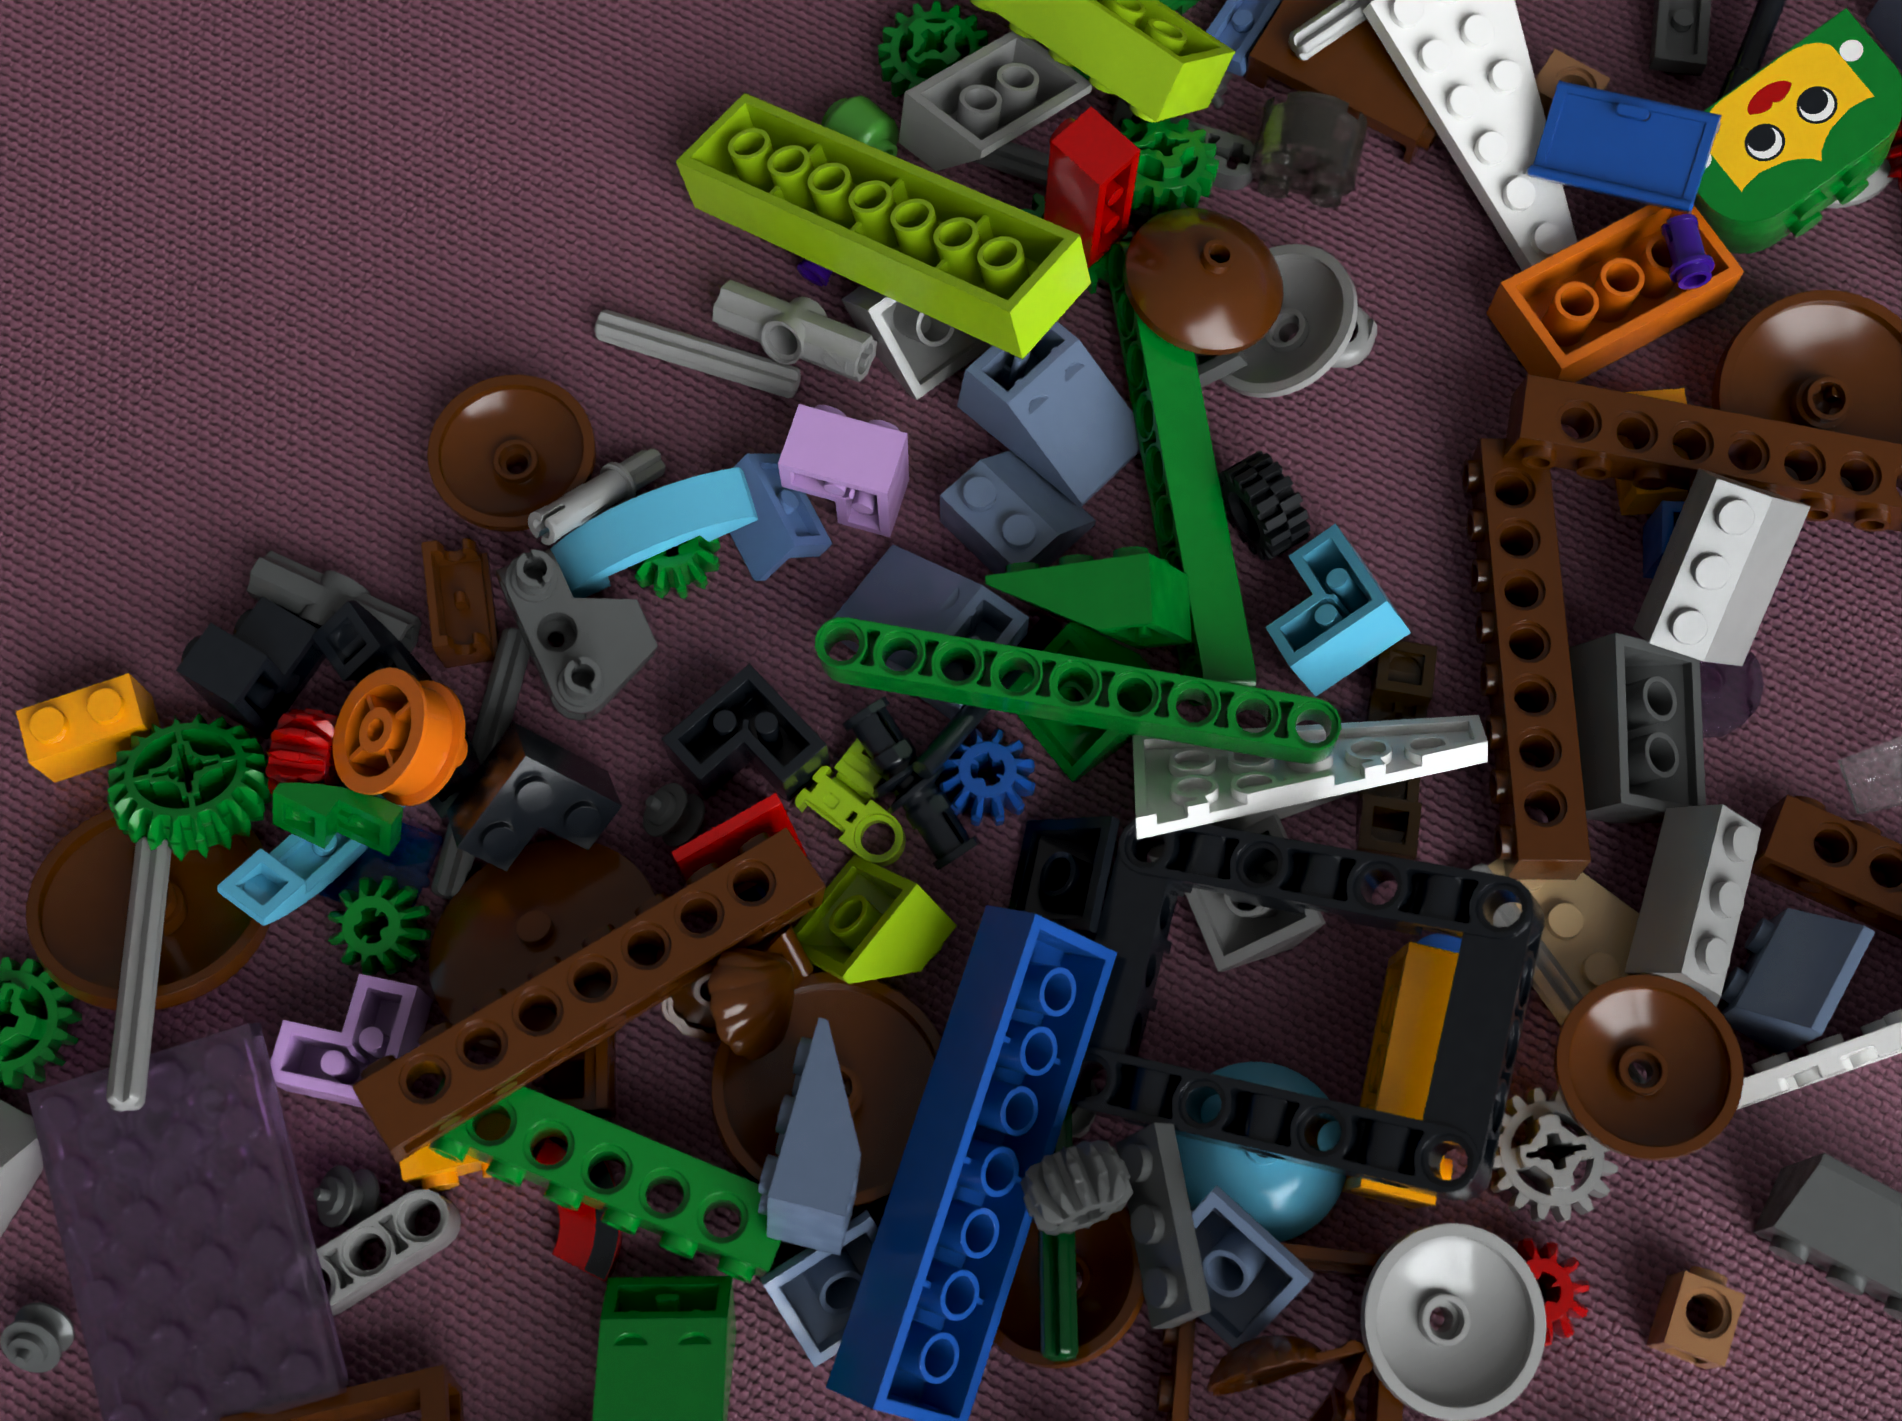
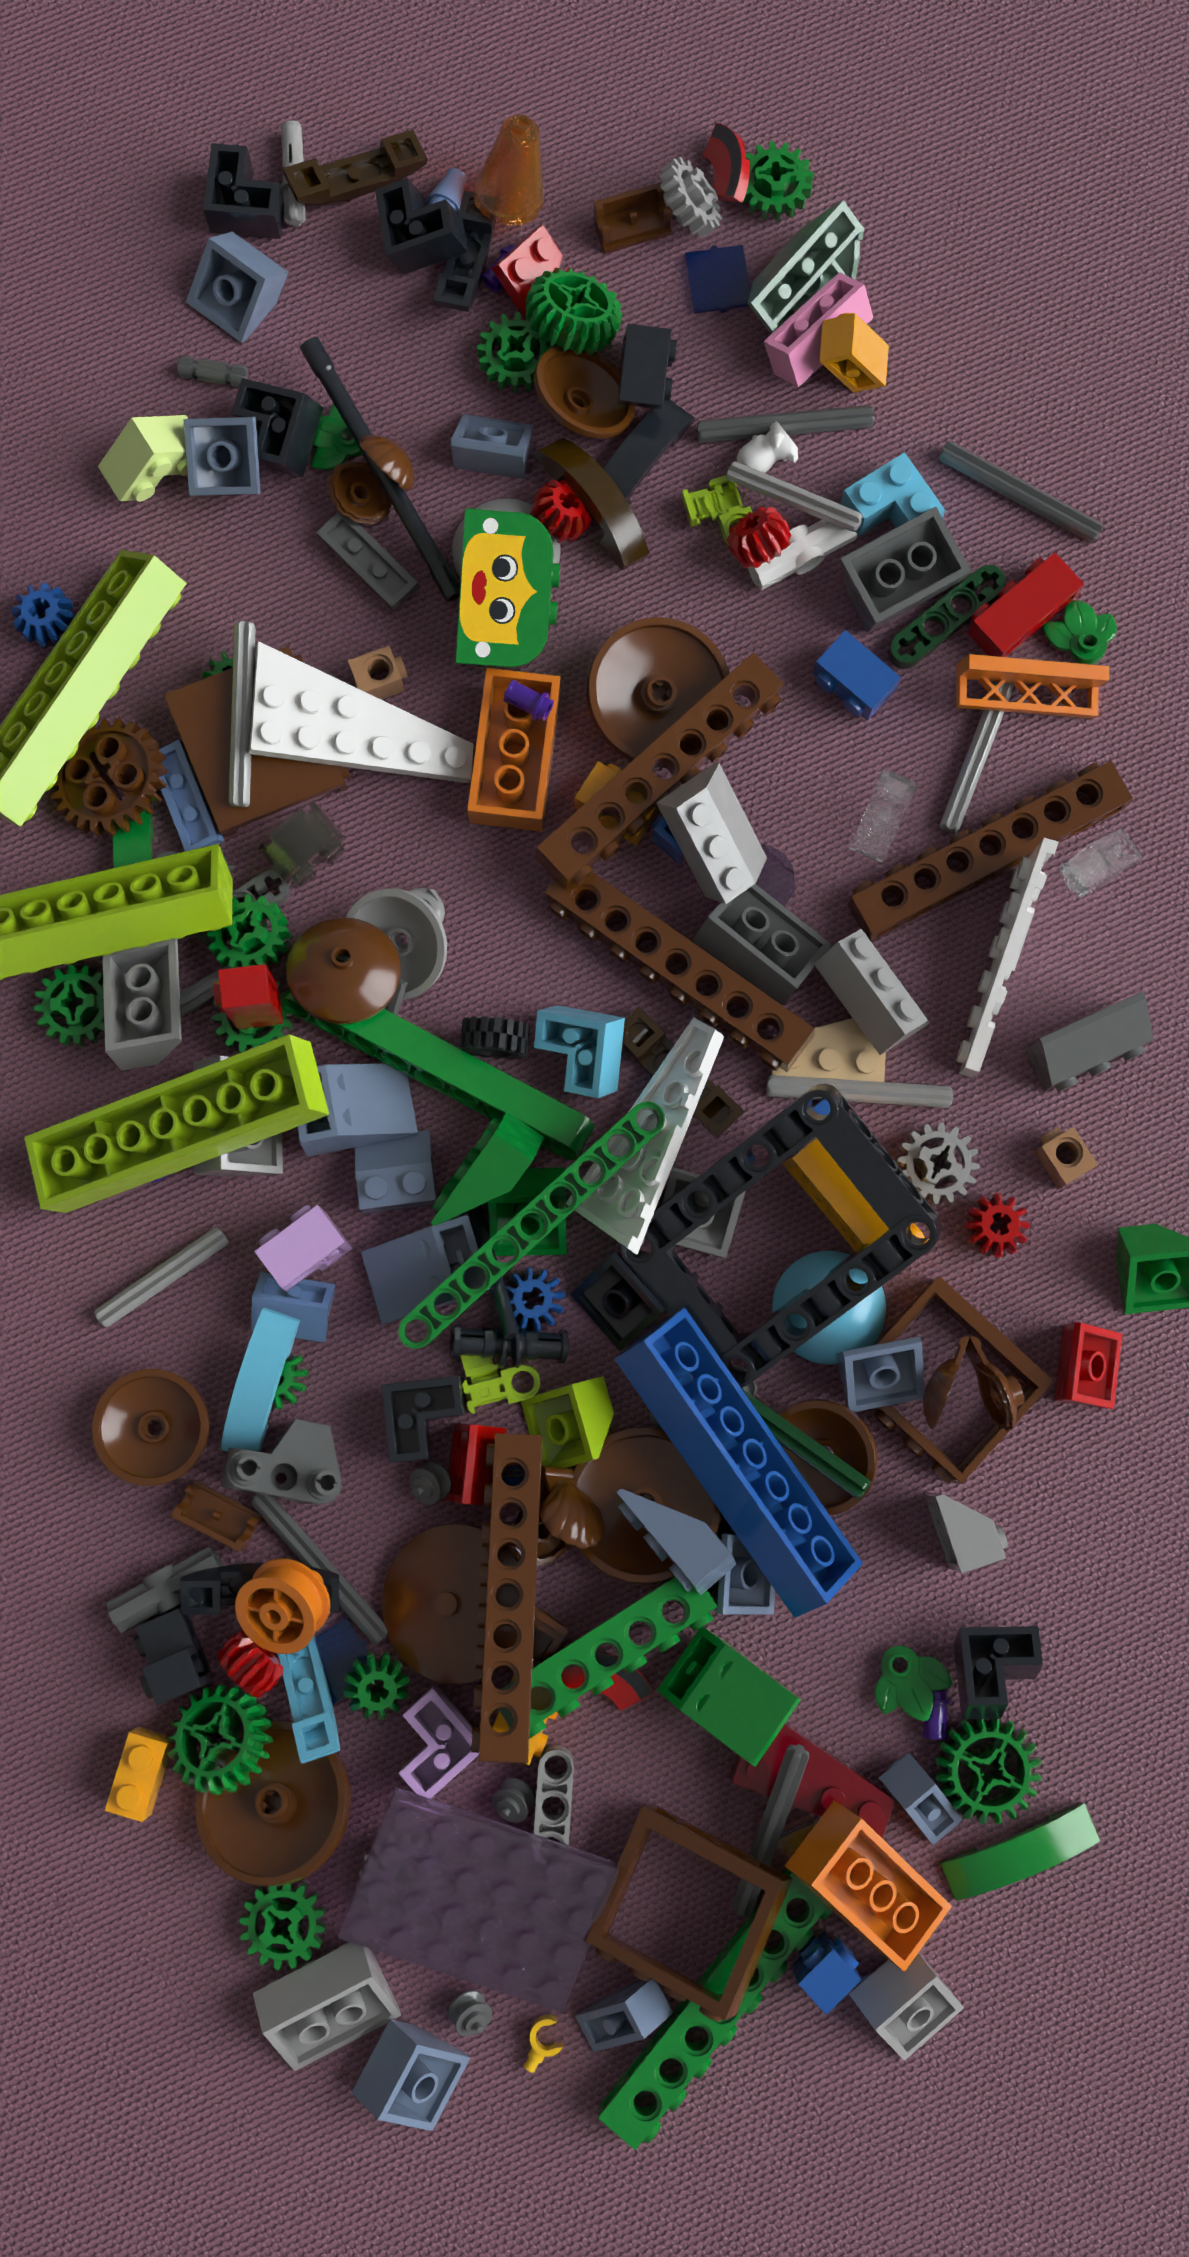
camera: 55 degrees left, 10 degrees up
(139, 977) = (319, 1835): light grey axle -> none
(322, 810) = (290, 1677): green slope -> none
(527, 787) = (363, 1556): black brick -> none
(614, 485) = (212, 1383): light grey axle -> none
(794, 330) = (192, 1214): light grey piece -> none
(863, 121) = (94, 1085): bright green head -> none
(1076, 1187) = (791, 1421): dark grey gear -> none
(1163, 1227) = (839, 1391): dark grey plate -> none
(1489, 1328) = (1007, 1279): light grey dish -> none
(1622, 155) = (443, 686): blue door -> none
(1687, 1057) = (956, 1069): reddish brown dish -> none
(1792, 977) = (942, 972): sand blue slope -> none

